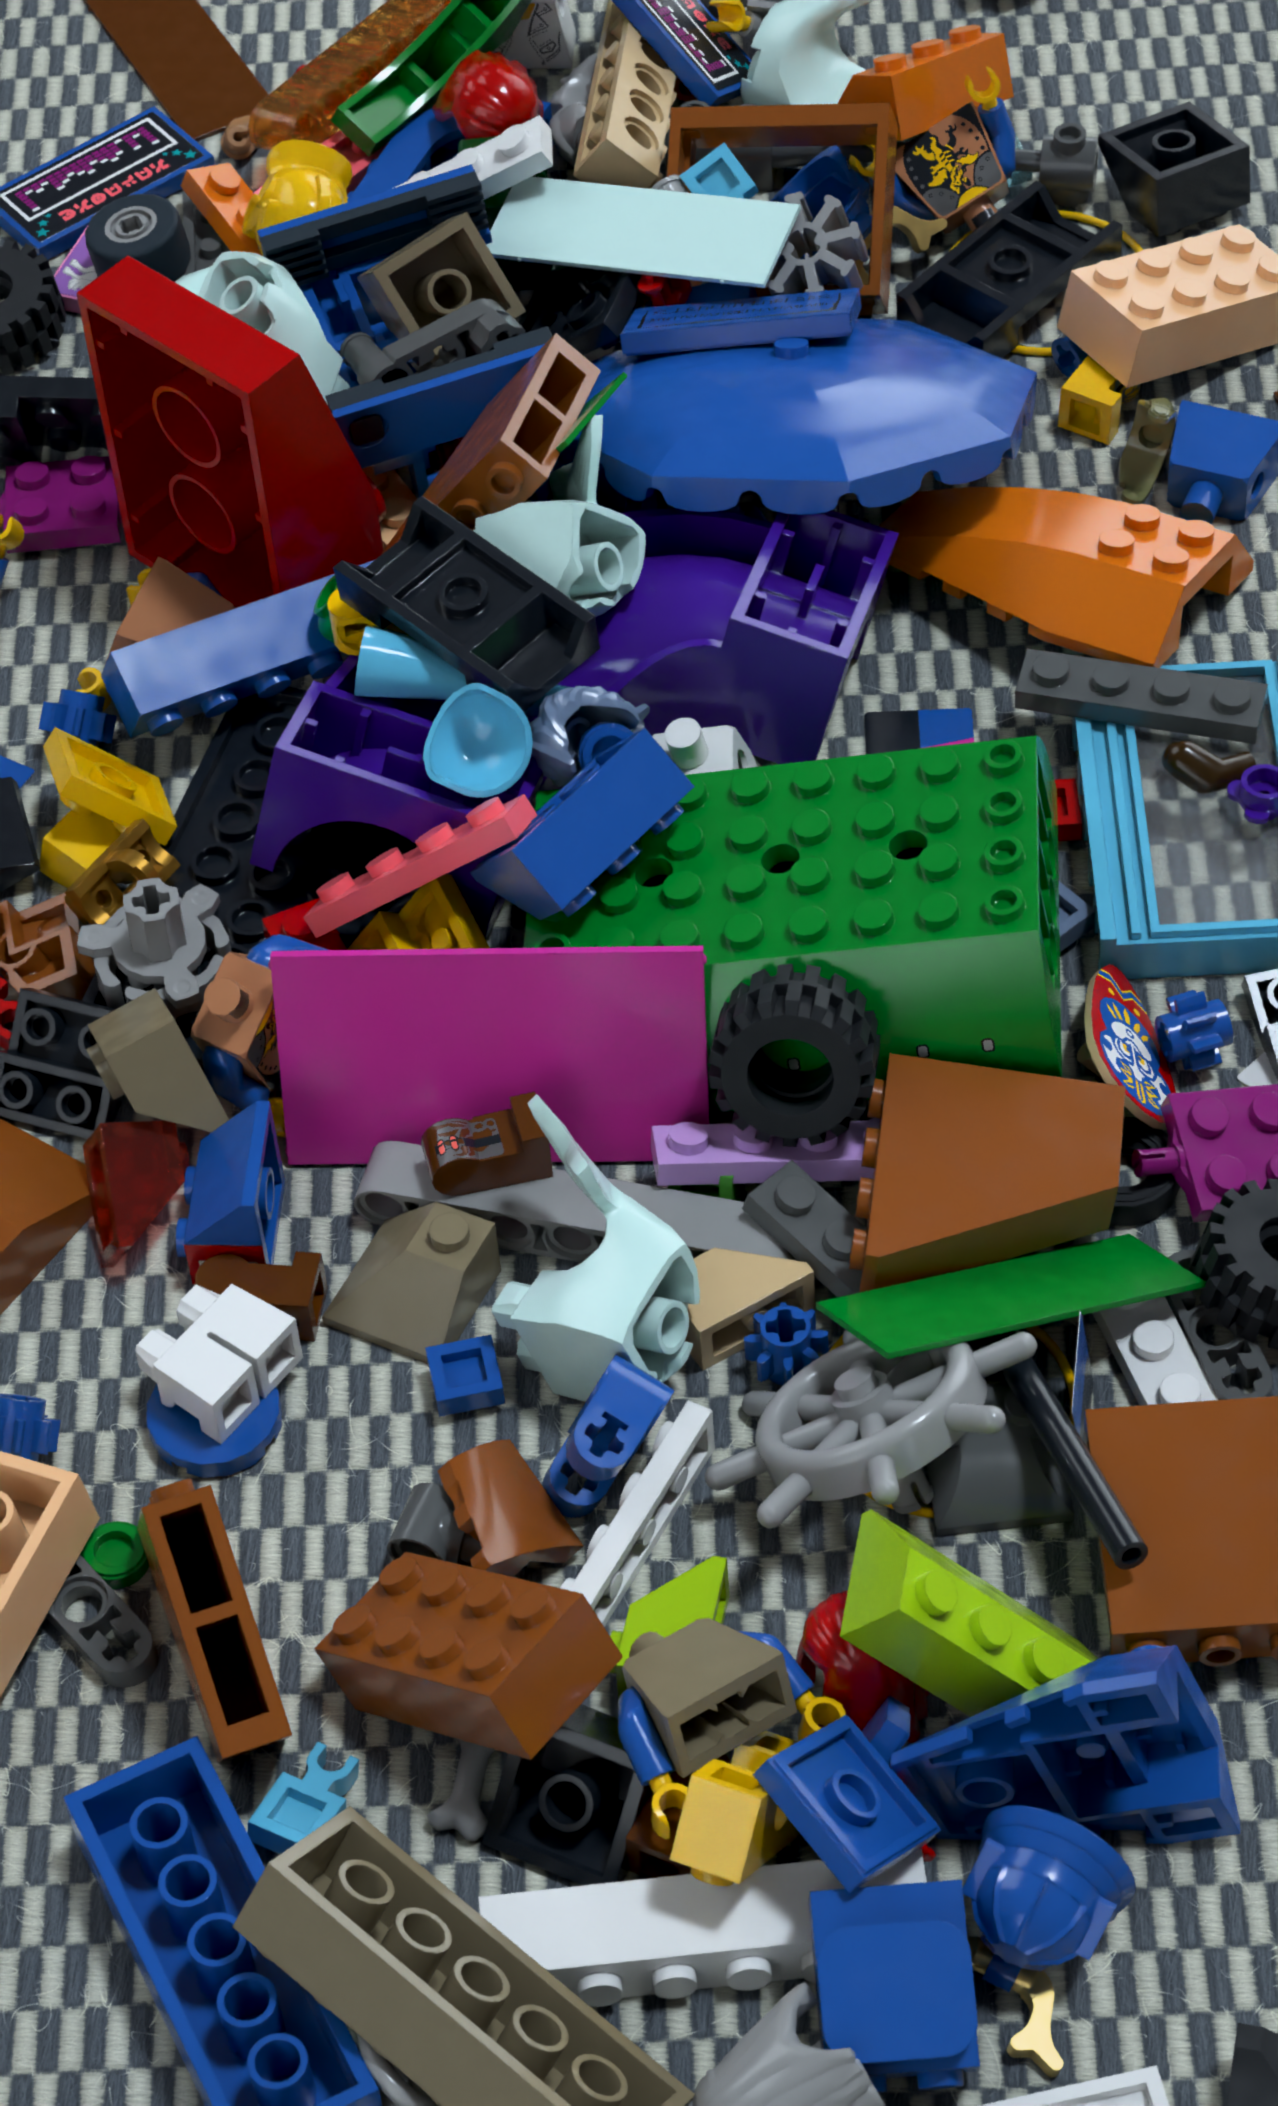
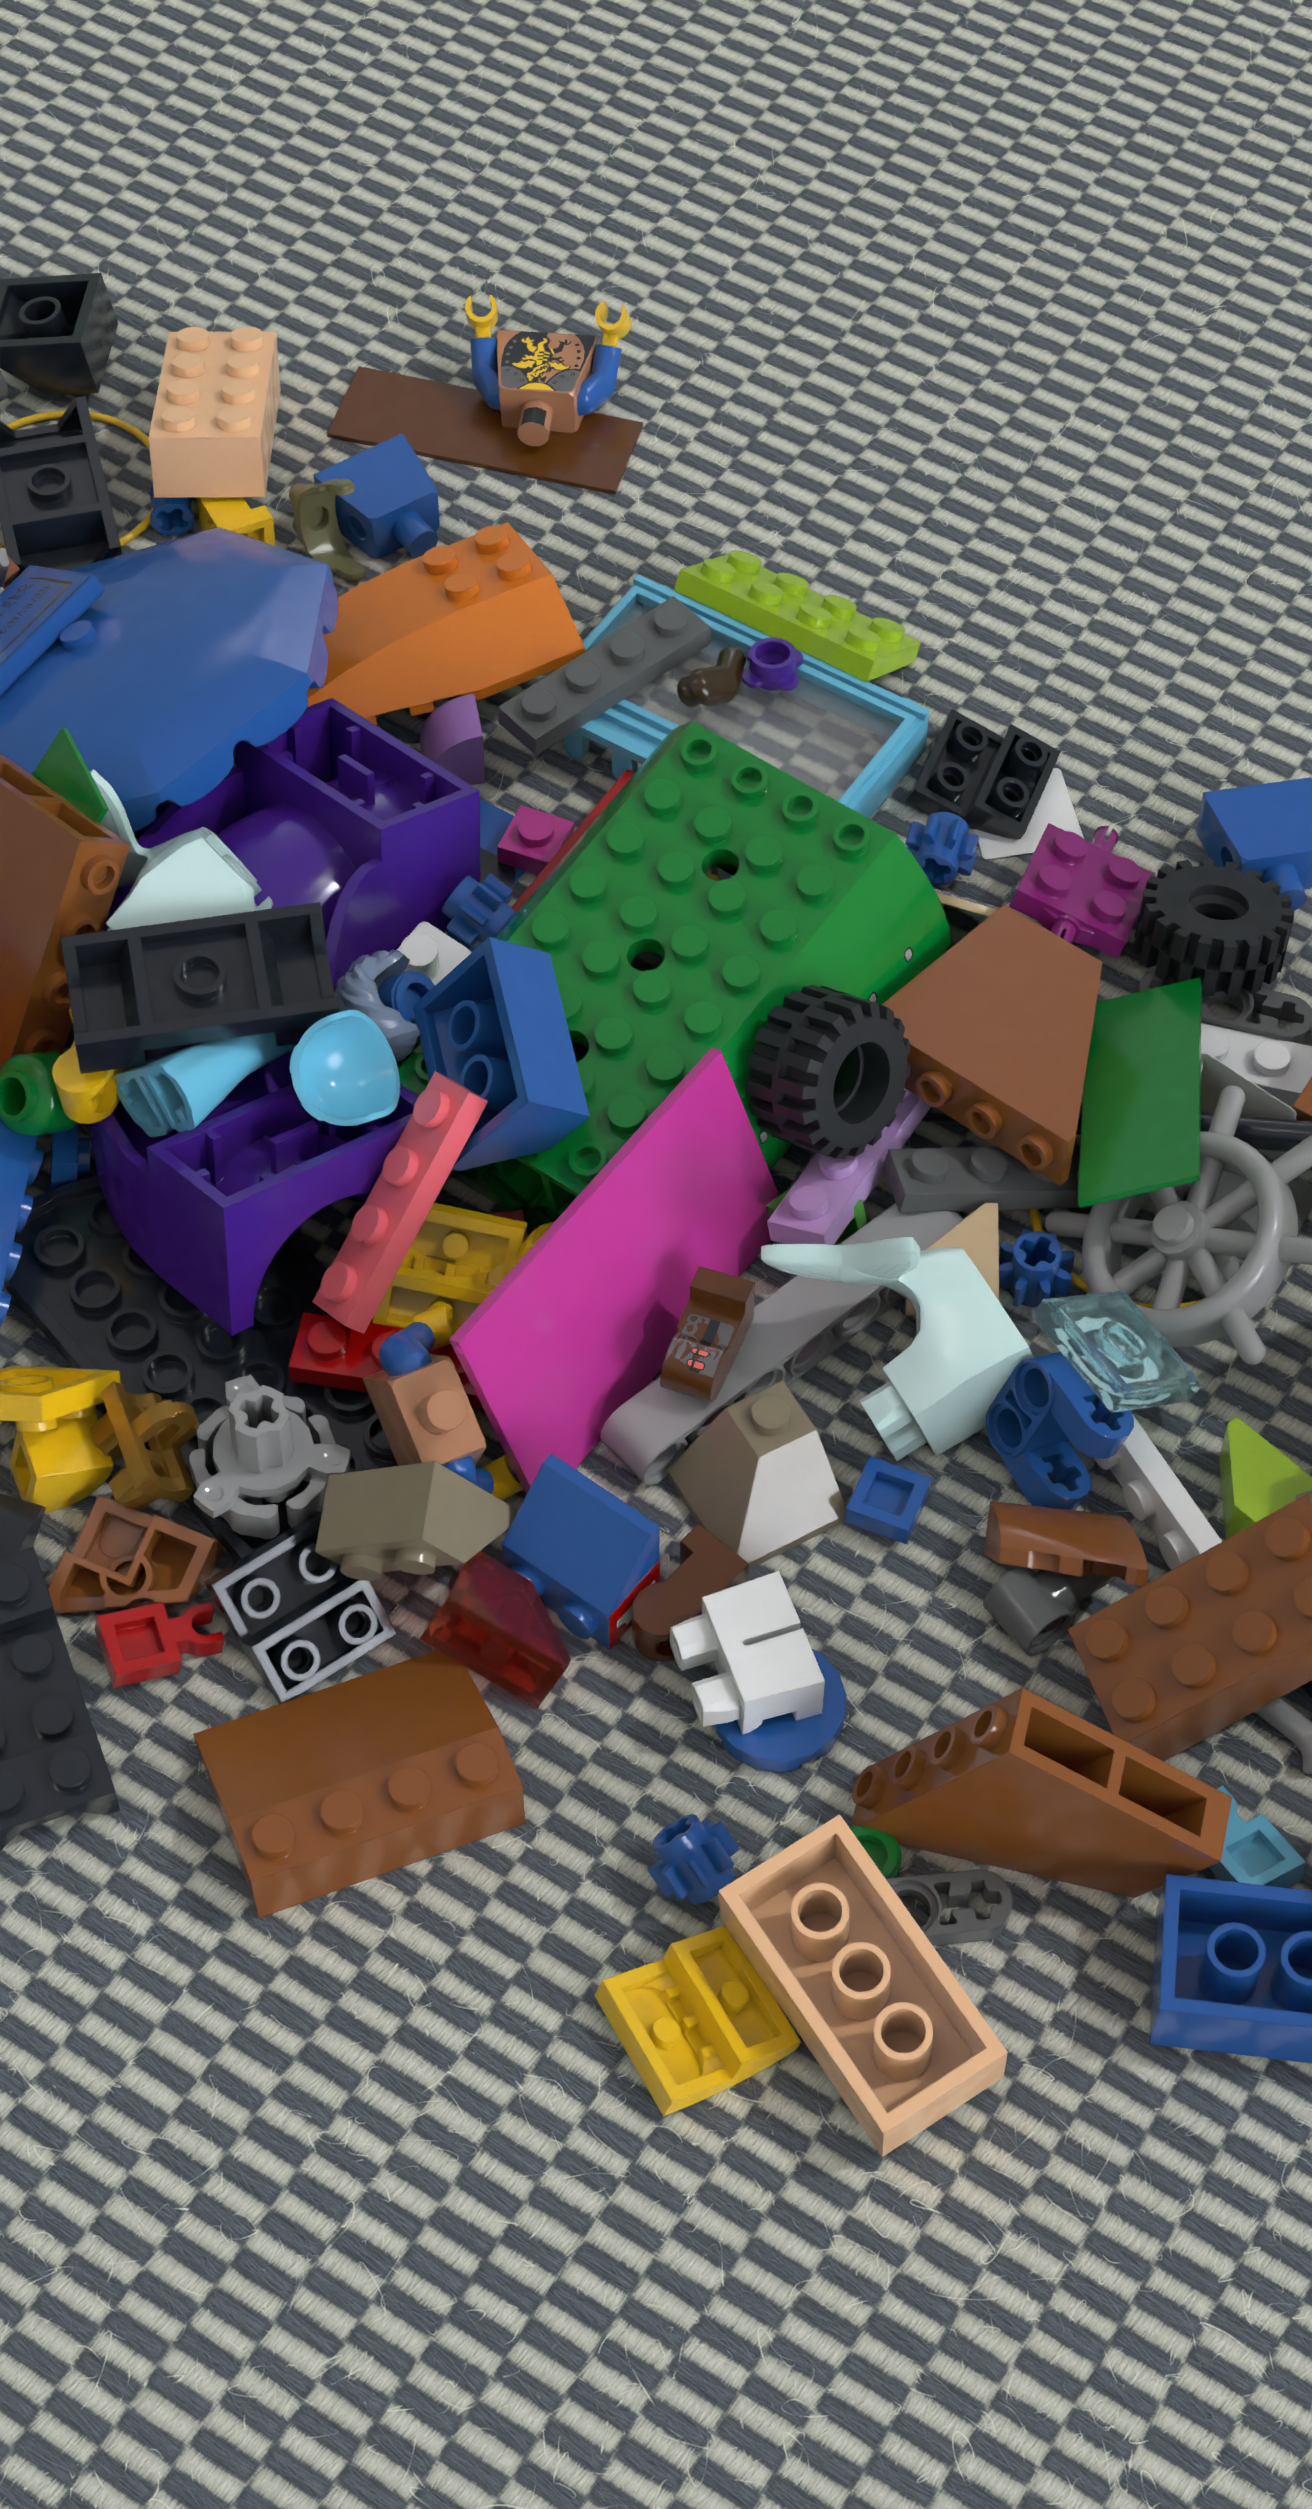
camera: 60 degrees left, 5 degrees up
(688, 1417) = (1116, 1350): none -> clear light blue tile
(779, 743) = (478, 910): none -> blue gear
(993, 663) = (455, 739): none -> medium lavender brick

